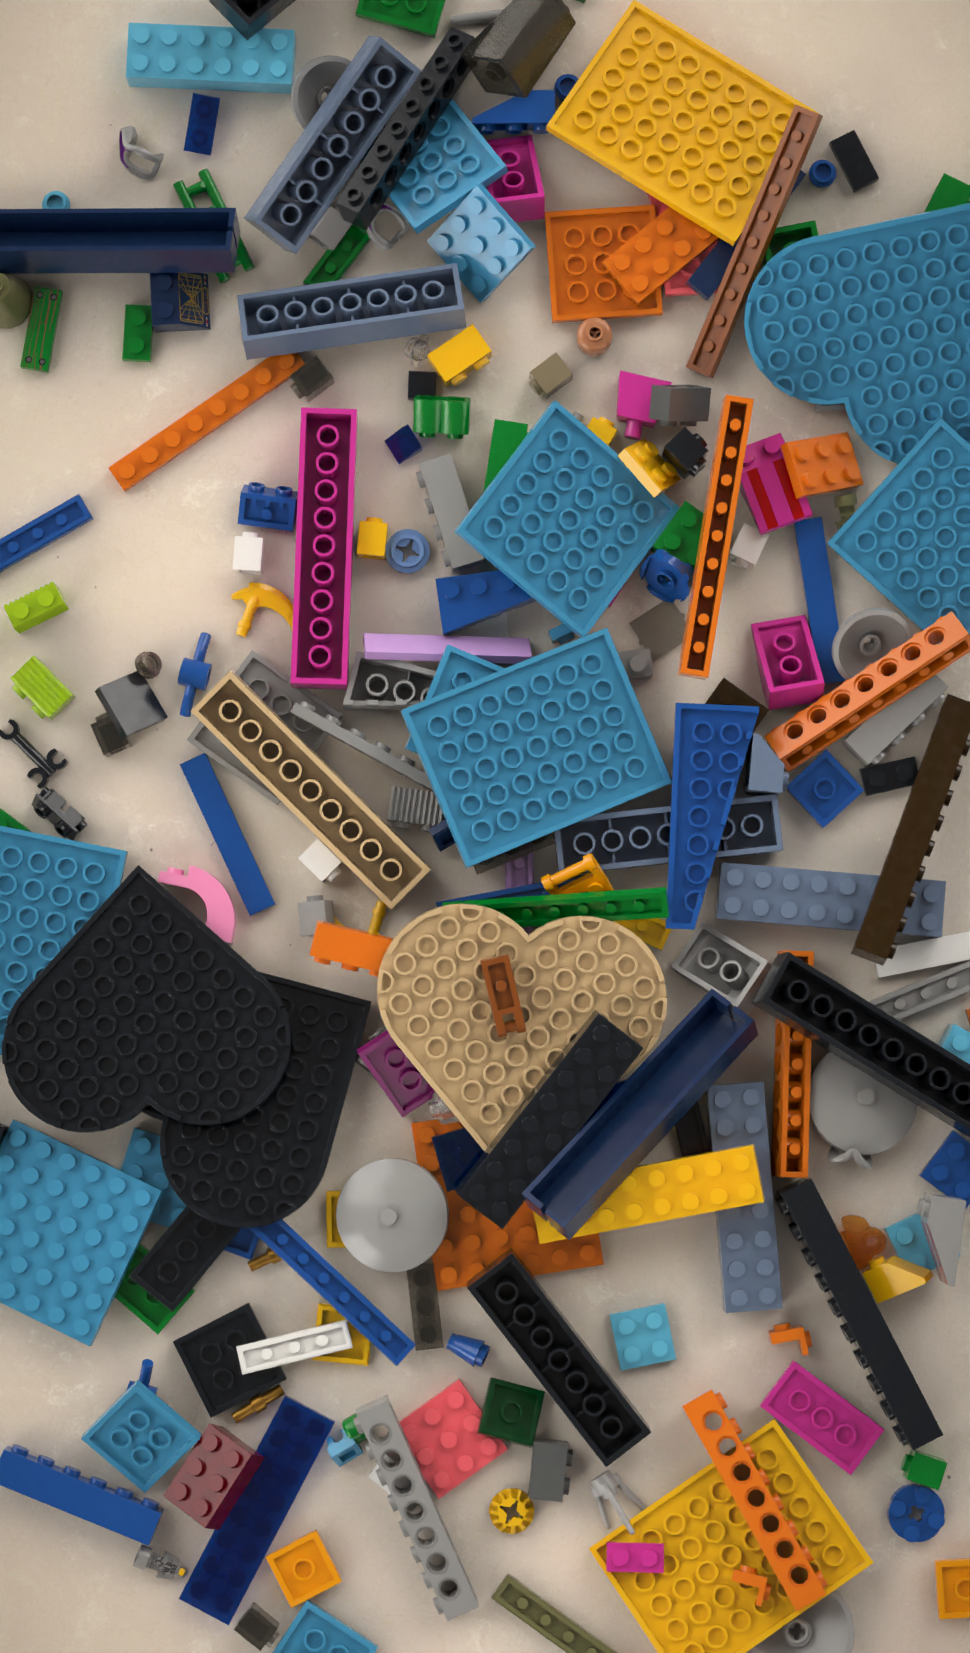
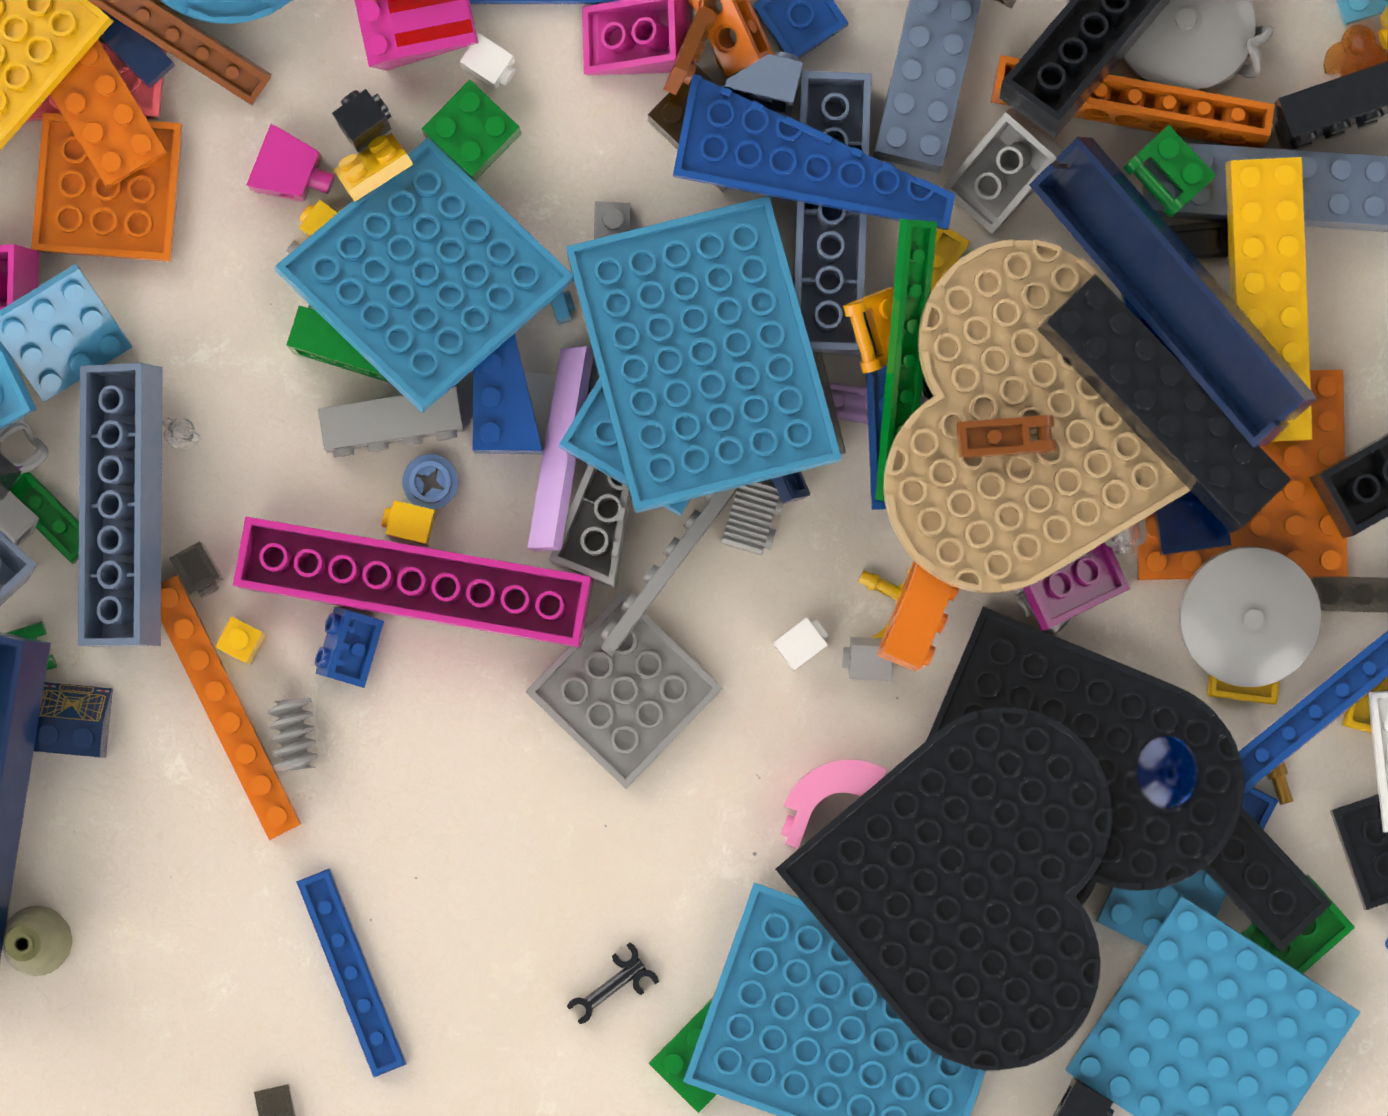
camera: 85 degrees left, 0 degrees up
(36, 607) = (432, 954): lime brick -> none
(41, 329) = (80, 899): green tile -> none
(41, 688) = (535, 960): lime brick -> none
(49, 804) = (683, 973): black hinge -> none
(108, 736) = (604, 883): clear smoke brick -> none
(131, 704) = (571, 851): tile -> none
(137, 333) = (104, 779): green plate -> none
(148, 664) = (524, 823): clear smoke plate -> none
(192, 473) = (292, 734): none -> light grey piece
(194, 674) = (545, 767): blue piece -> none
(227, 834) = (750, 755): blue tile -> none
(248, 554) = (404, 679): white brick -> none
(256, 1163) = (1157, 776): none -> clear blue dish
(260, 421) = (240, 640): none -> yellow brick
(261, 596) = (459, 667): yellow piece -> none
(311, 789) = (712, 641): tan brick -> none
(403, 444) = (295, 467): clear blue slope -> none
(421, 383) = (225, 434): black tile -> none
(441, 415) = (268, 414): green brick -> none
(460, 356) = (196, 381): yellow brick -> none
(550, 376) = (238, 273): dark tan brick -> none
(591, 345) = (209, 214): nougat head -> none
(659, 566) = (497, 170): blue plate -> none
(660, 629) = (573, 184): clear smoke piece -> none
(679, 404) = (300, 117): dark grey brick -> none
(715, 537) = (475, 94): orange brick -> none
(746, 1105) = (1177, 163): none -> green plate
(778, 702) = (691, 49): none -> dark orange plate

